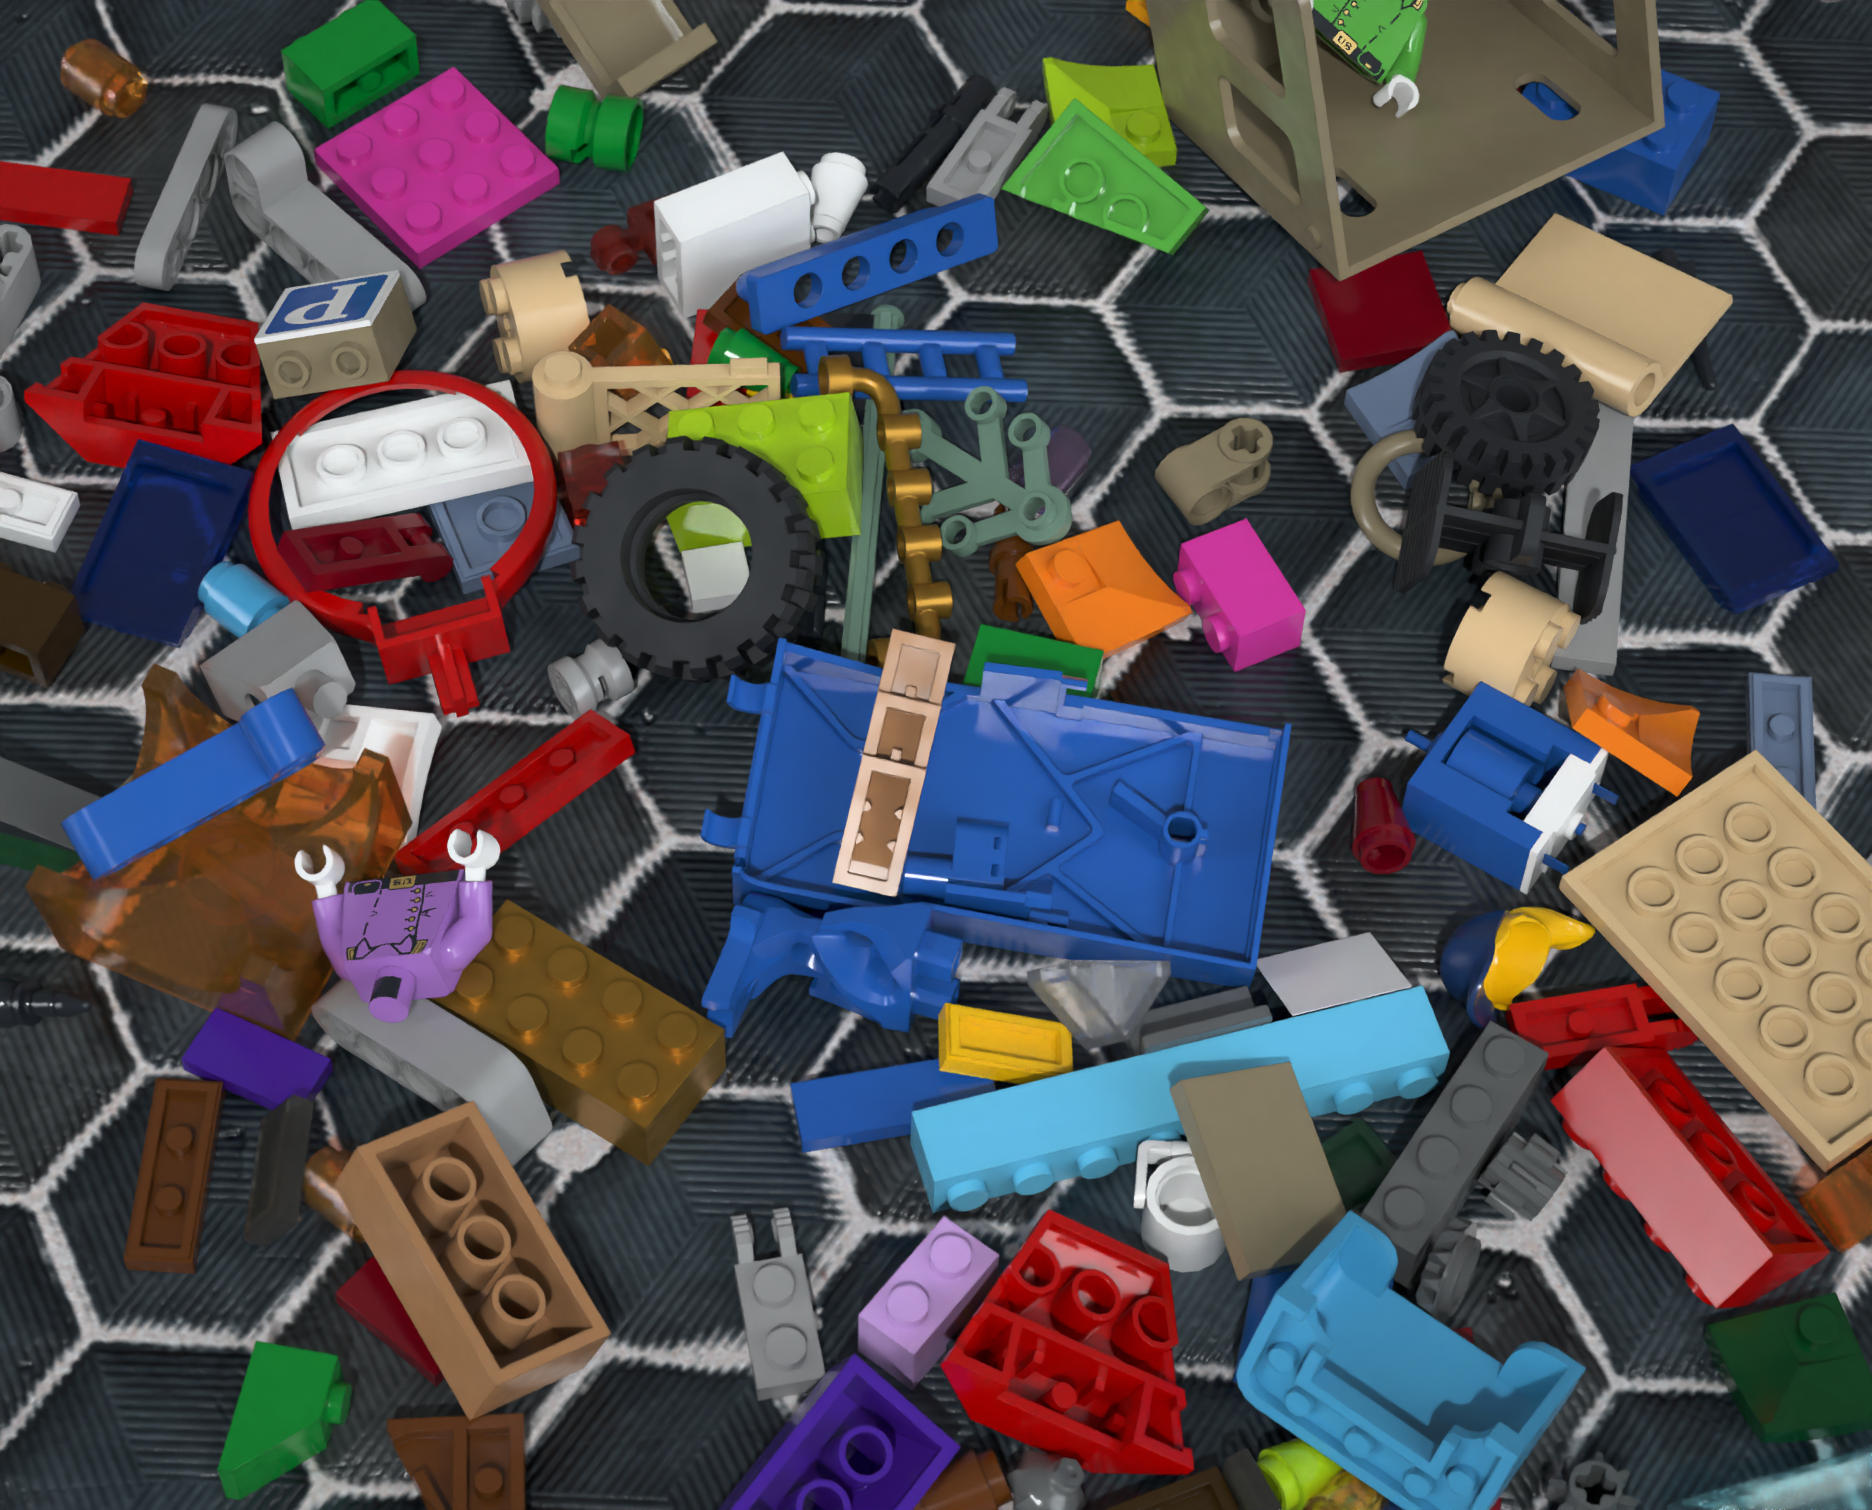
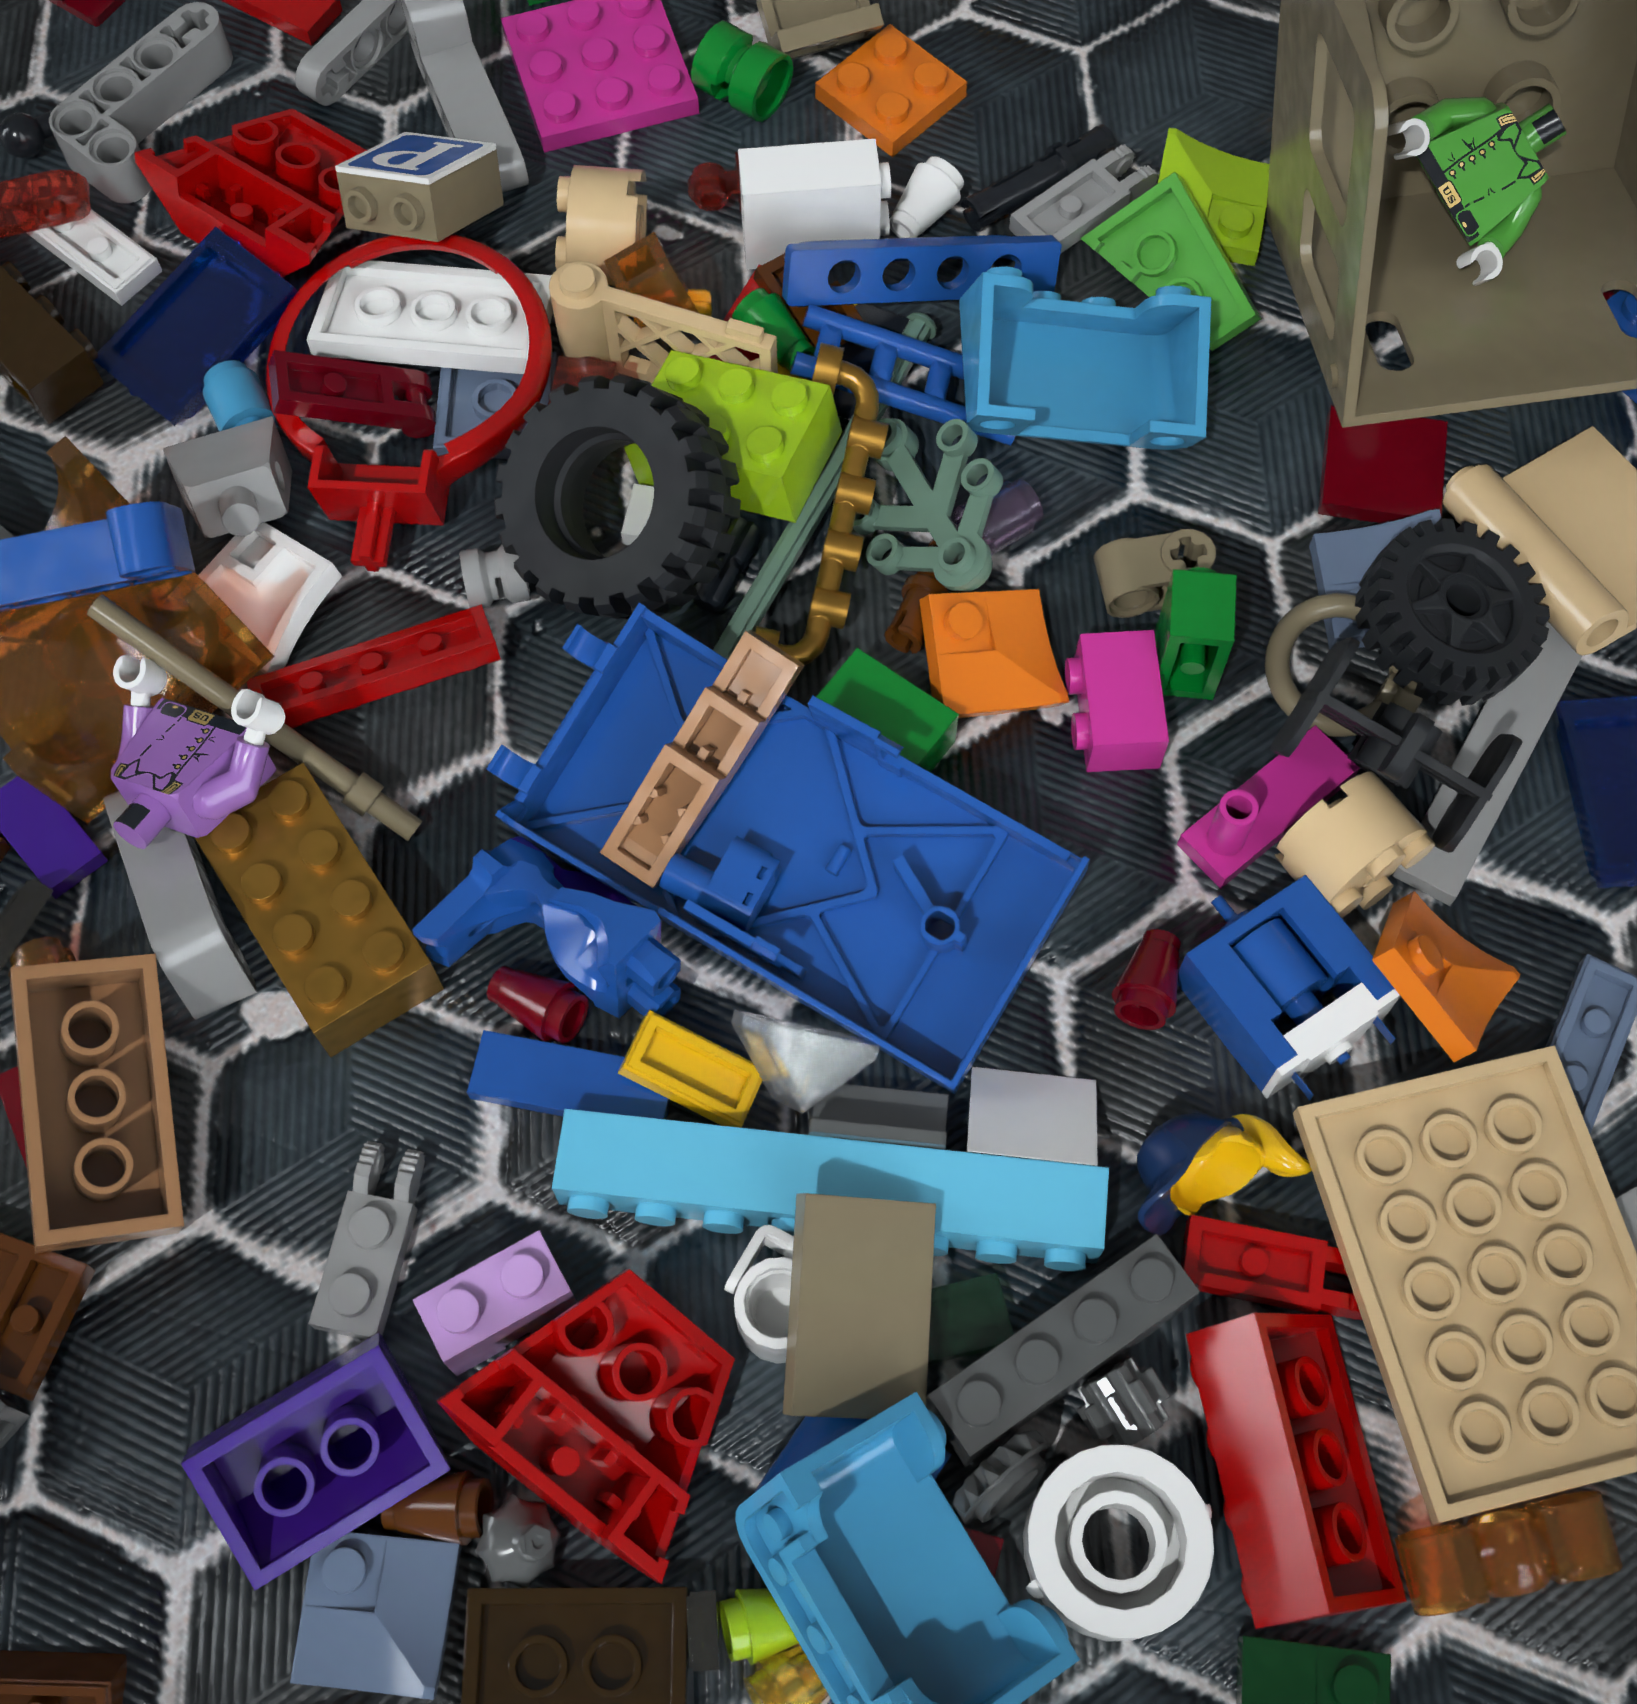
camera: 25 degrees right, 10 degrees up
(562, 913) = (359, 792): none -> dark tan bar
(744, 102) = (891, 90): none -> orange plate
(830, 1041) = (540, 1003): none -> dark red cone
(1070, 304) = (1085, 365): none -> dark azure windscreen
(1287, 505) = (1195, 632): none -> green brick
(1413, 647) = (1266, 807): none -> dark pink piece
(1579, 1238) = (1175, 1527): none -> white piece

